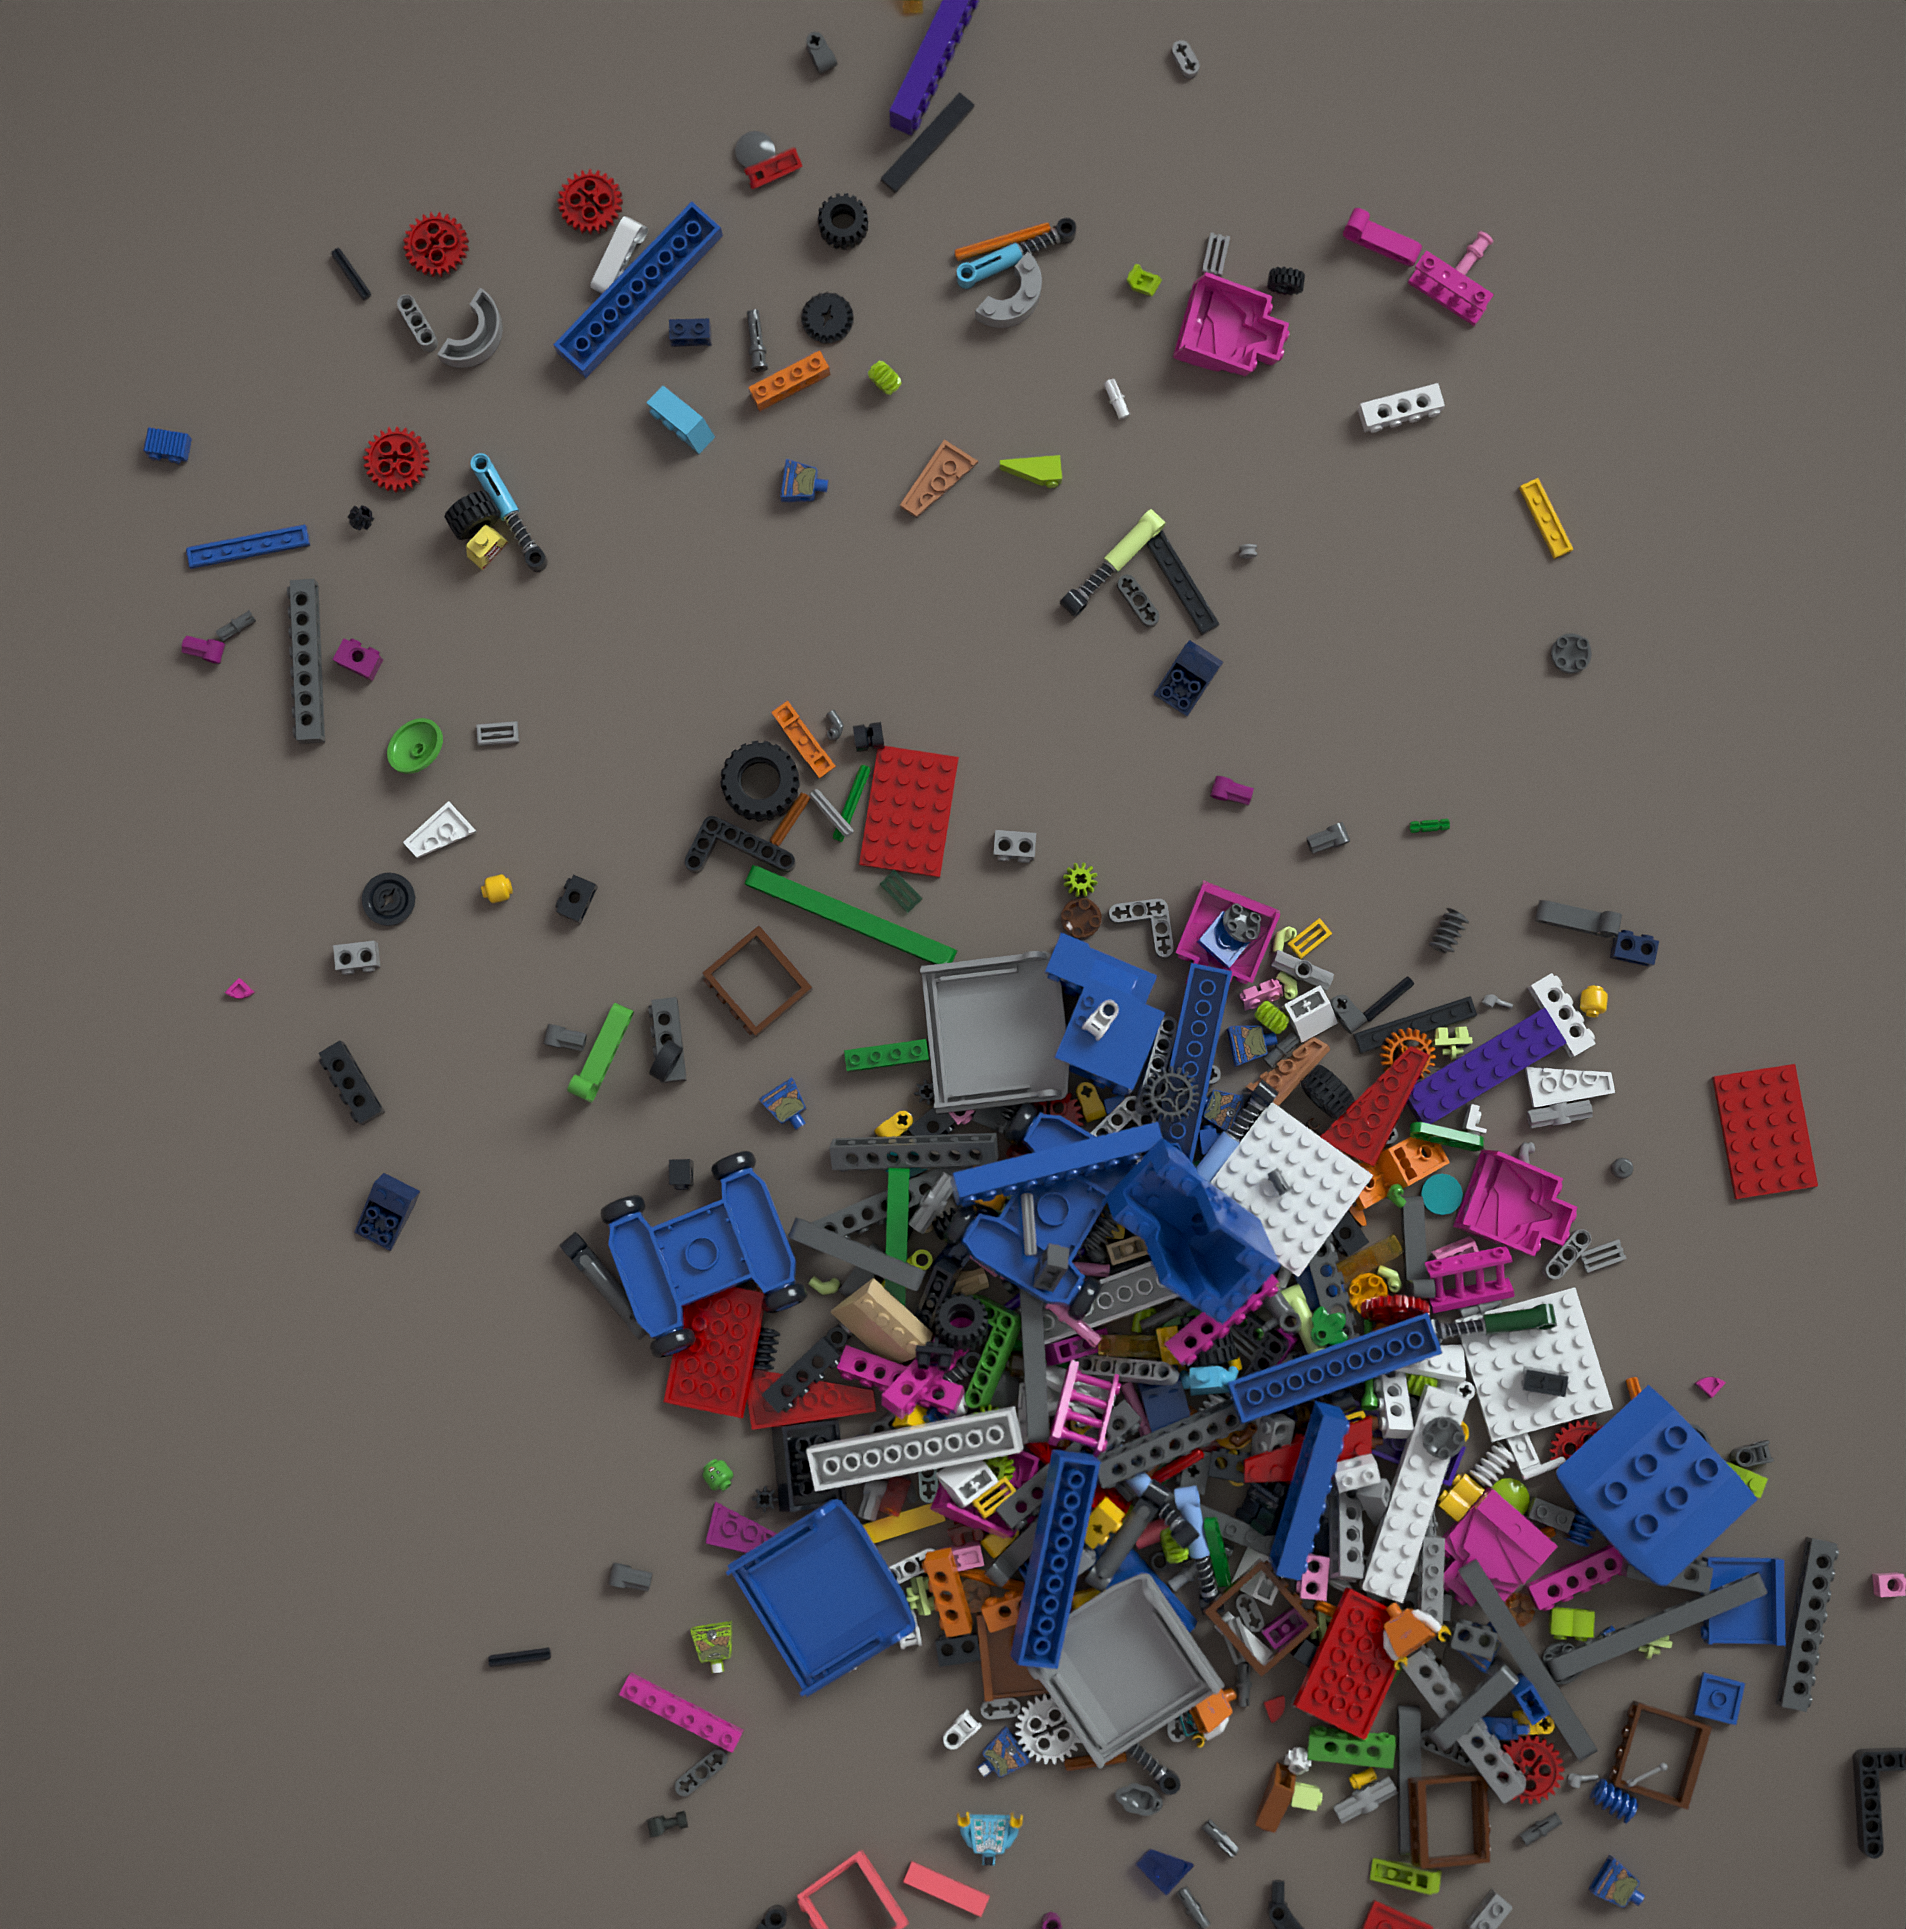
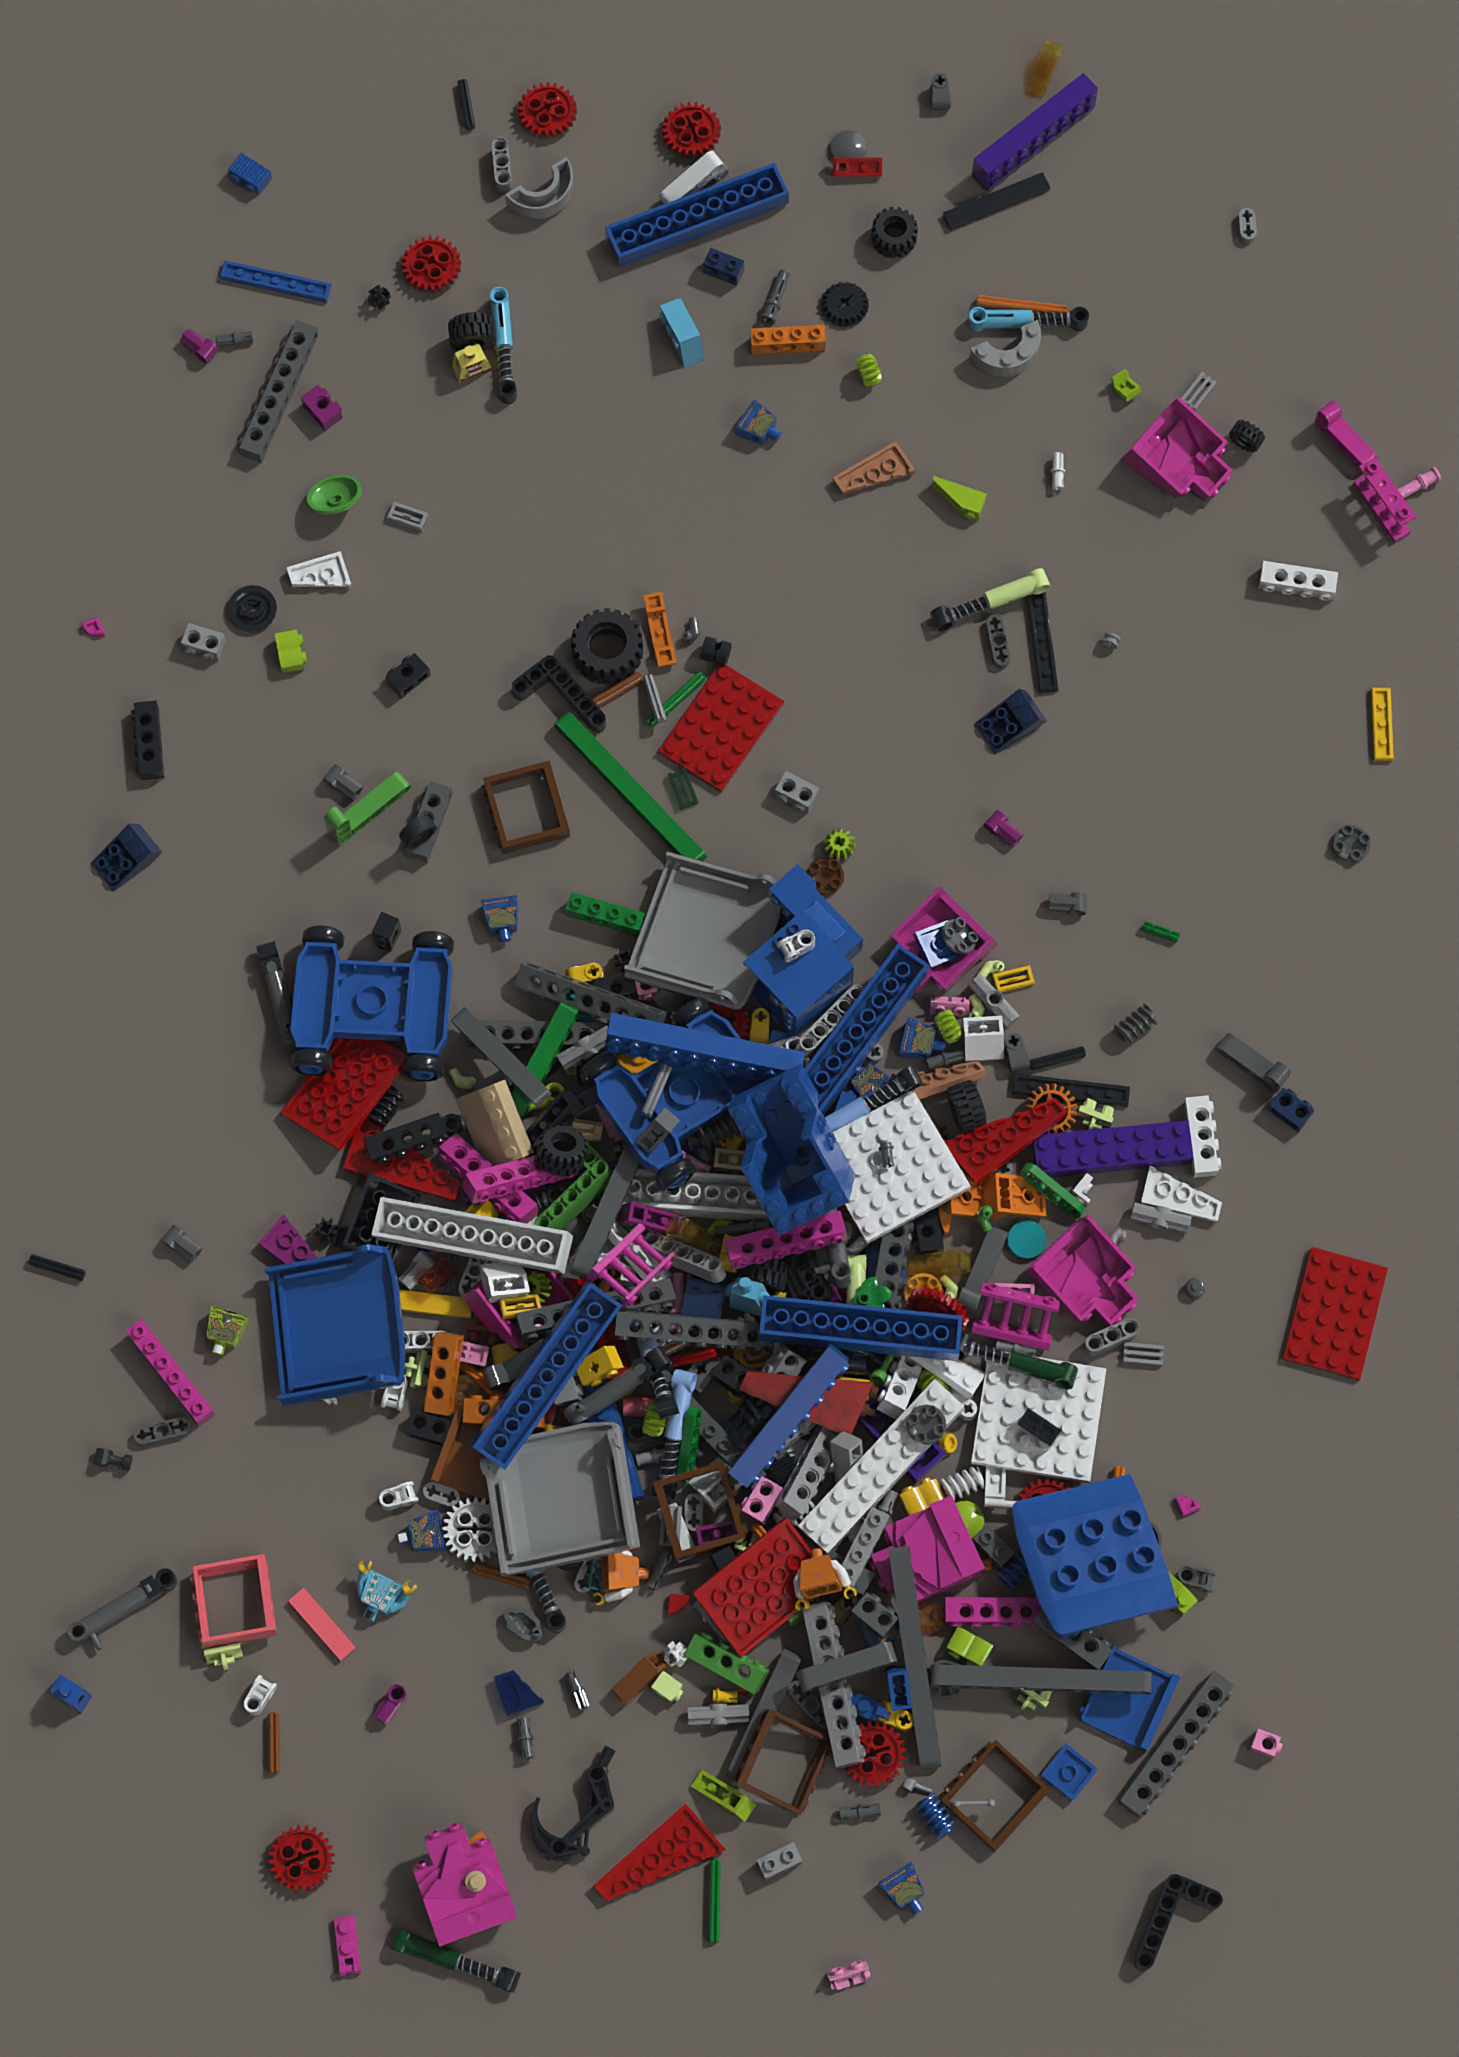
camera: 25 degrees right, 10 degrees down
(447, 926) = (289, 650): none -> lime brick
(497, 888) = (346, 638): yellow head -> none
(717, 1475) = (296, 1192): bright green head -> none
(934, 1352) = (526, 1162): black hips -> none
(1080, 1327) = (659, 1197): bright pink pin -> none
(1155, 918) = (894, 906): light grey beam -> none
(1188, 1089) = (836, 1043): dark grey gear -> none
(1356, 1473) = (837, 1421): white brick -> none
(1491, 999) = (1147, 1097): light grey hand -> none
(1593, 1001) = (1235, 1136): yellow head -> none

